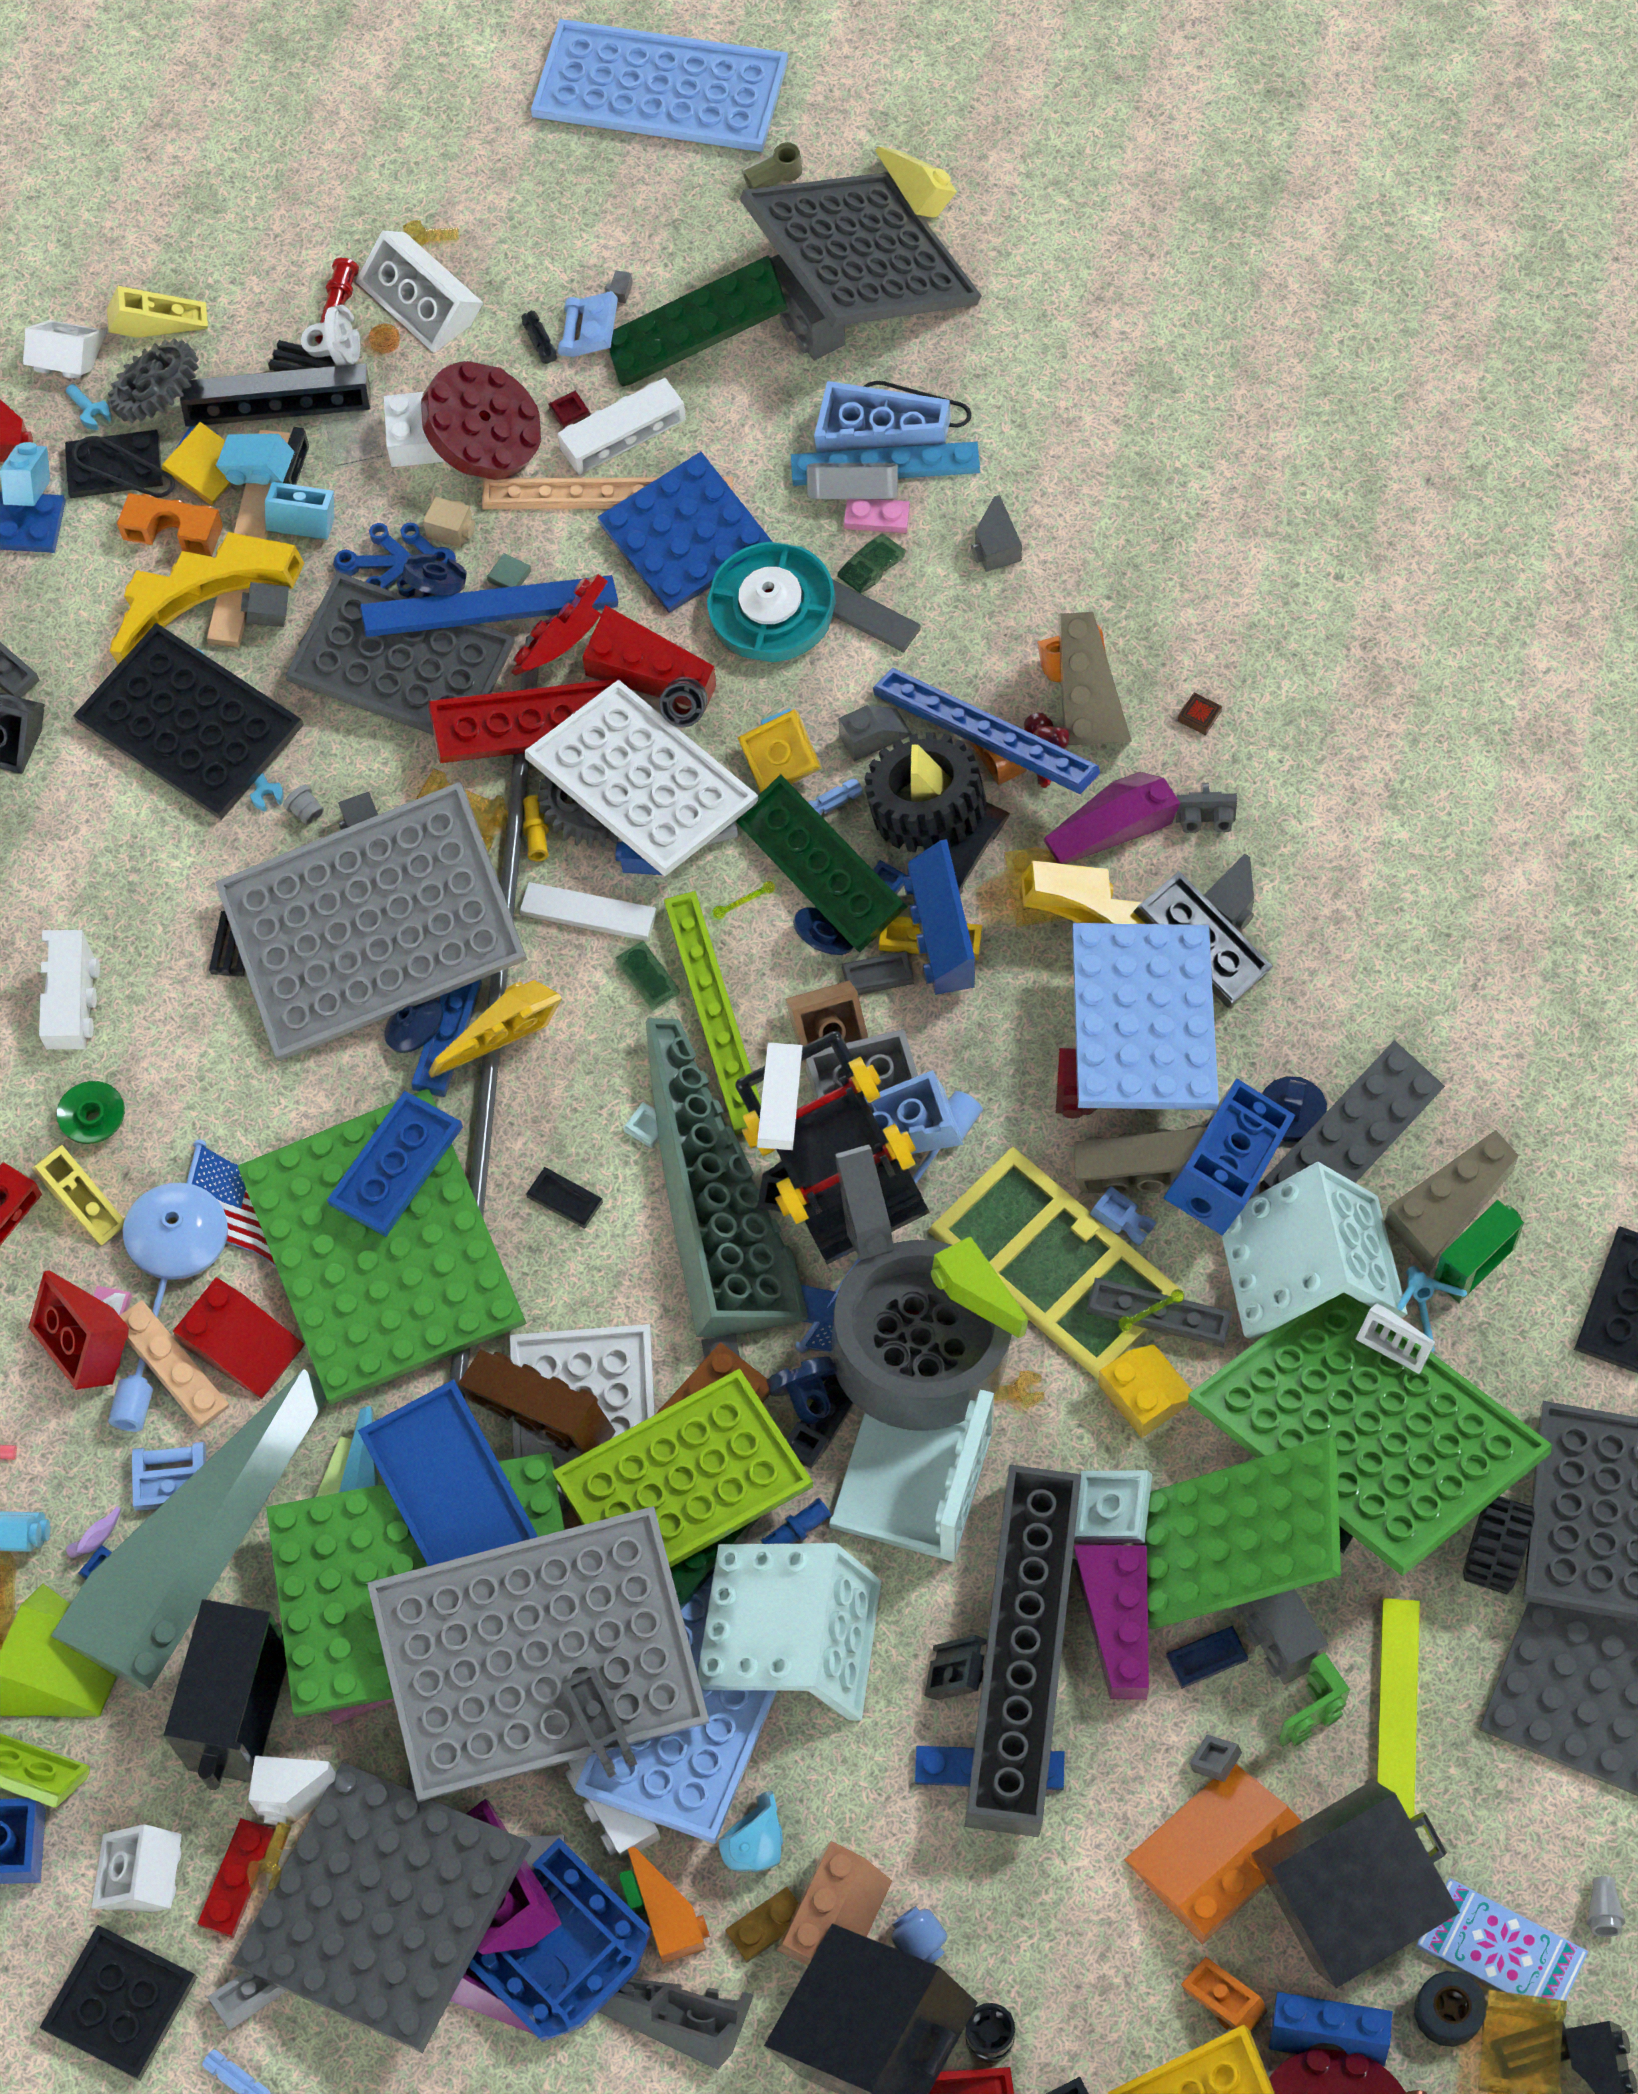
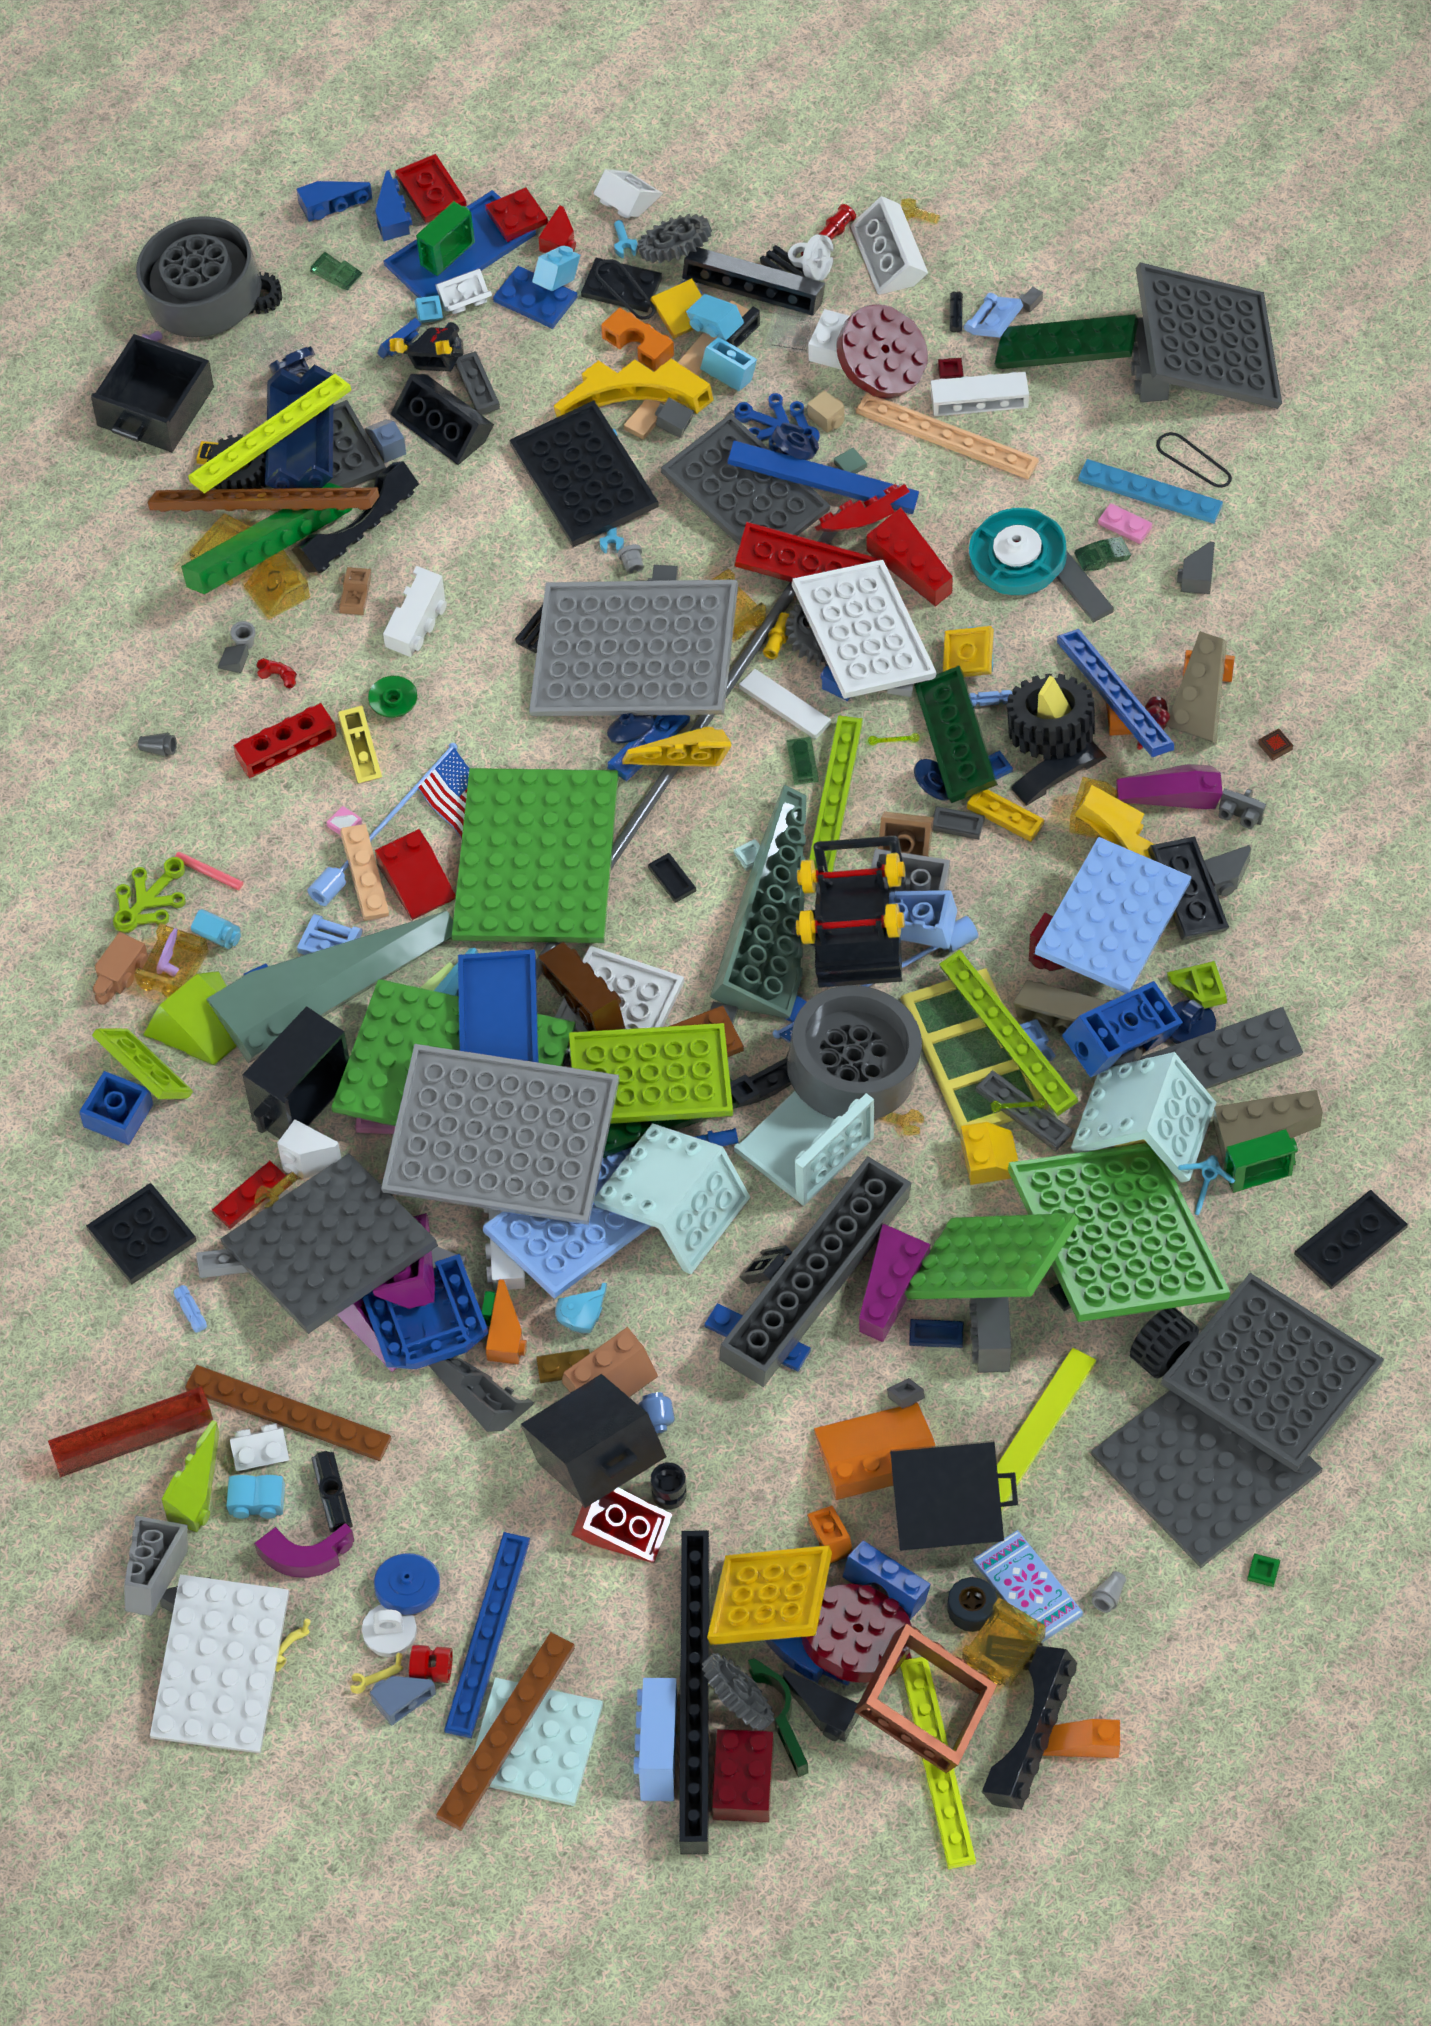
camera: 25 degrees right, 5 degrees down
(78, 1332) = (315, 827): red slope -> none
(94, 1536) = (264, 955): lavender bar -> none
(137, 1869) = (192, 1162): white slope -> none
(152, 314) = (699, 194): light yellow slope -> none
(180, 1247) = (409, 802): light blue dish -> none
(384, 338) = (849, 271): clear orange tile -> none
(395, 1163) = (569, 805): blue plate -> none
(597, 1717) = (517, 1186): dark grey hinge -> none
(660, 85) = (1135, 170): light blue plate -> none
(681, 530) = (982, 479): blue plate -> none
(683, 687) = (907, 591): black wheel -> none
(780, 1096) = (833, 857): white tile -> none
(782, 165) = (1191, 258): olive piece -> none
(803, 1384) = (763, 1051): dark blue tile -> none
(852, 480) = (1118, 492): light grey beam -> none
(863, 1203) = (853, 947): dark grey slope -> none
(871, 730) = (1040, 660): dark grey slope -> none
(878, 418) = (1160, 458): light blue wedge -> none
(922, 185) = (1281, 308): light yellow slope -> none
(940, 920) = (1013, 802): blue slope -> none
(976, 1286) = (900, 1031): lime slope -> none
(1091, 1220) = (1008, 1033): none -> lime plate
(1113, 1506) = (925, 1214): light aqua plate -> none
(1279, 1054) = (1200, 984): none -> lime wing
(1330, 1697) = (985, 1391): bright green bracket -> none
(1379, 1342) = (1151, 1178): white slope -> none

